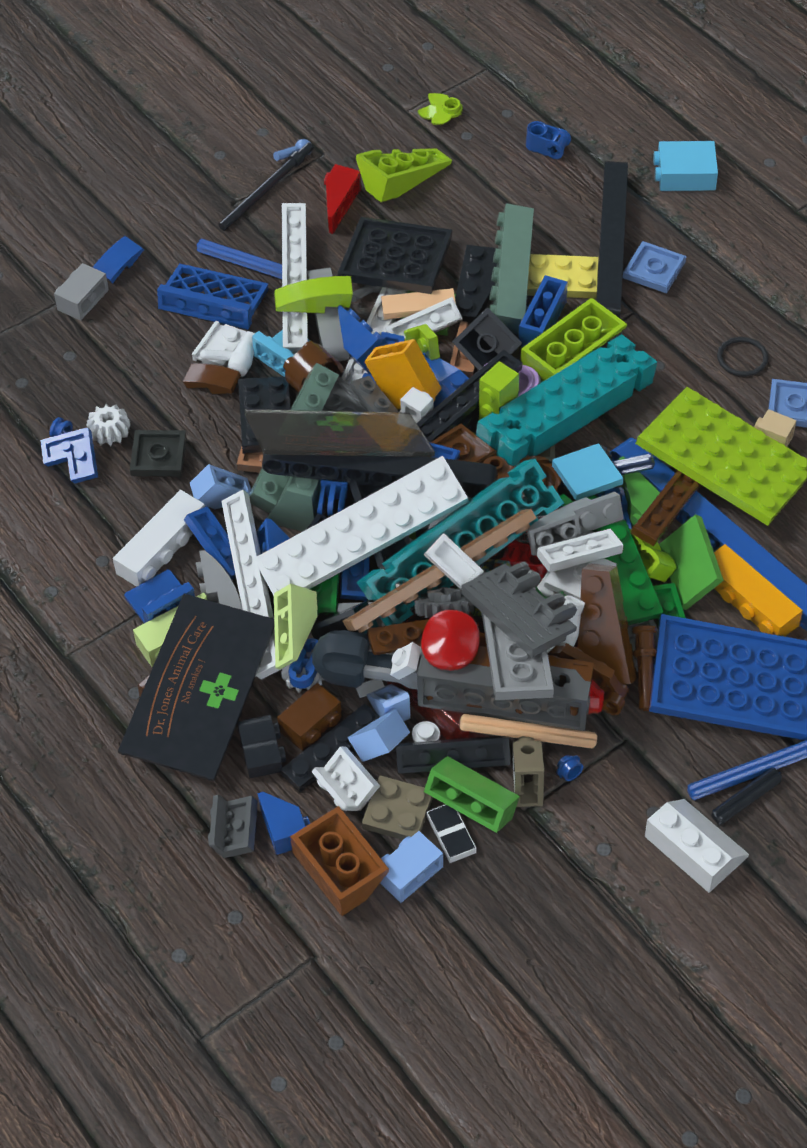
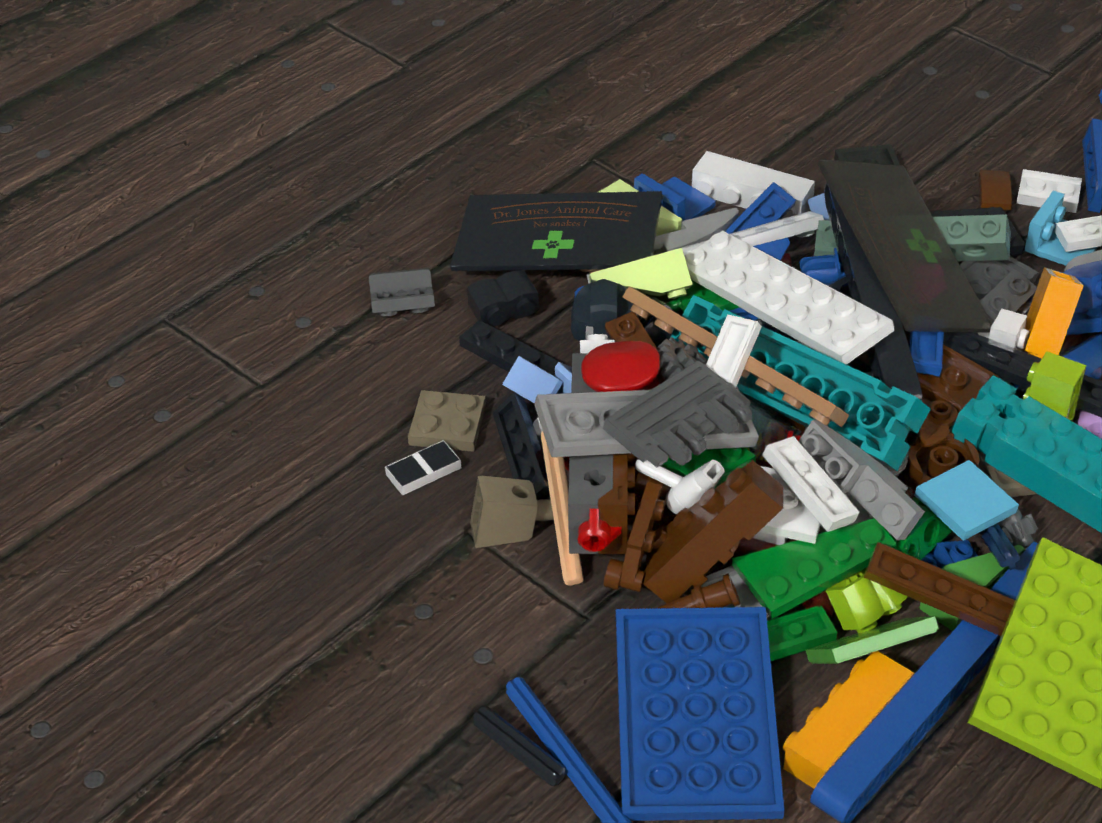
camera: 80 degrees right, 10 degrees down
(60, 427) = (865, 102): blue bush -> none
(76, 449) = (844, 108): plate -> none
(81, 291) = (1068, 77): light grey brick -> none
(108, 424) = (891, 126): white gear -> none
(239, 359) = (1028, 202): white piece -> none
(281, 821) = (409, 329): blue slope -> none
(304, 360) = (1039, 245): reddish brown brick -> none
(310, 716) = (545, 329): reddish brown brick -> none
(339, 860) = (356, 364): dark orange slope -> none
(346, 780) = (466, 365): white bracket -> none
(411, 866) = (368, 433): light blue brick -> none
(471, 794) = (474, 455): bright green brick -> none
(569, 767) = (526, 558): blue plate -> none
(694, 843) = (436, 691): white slope -> none

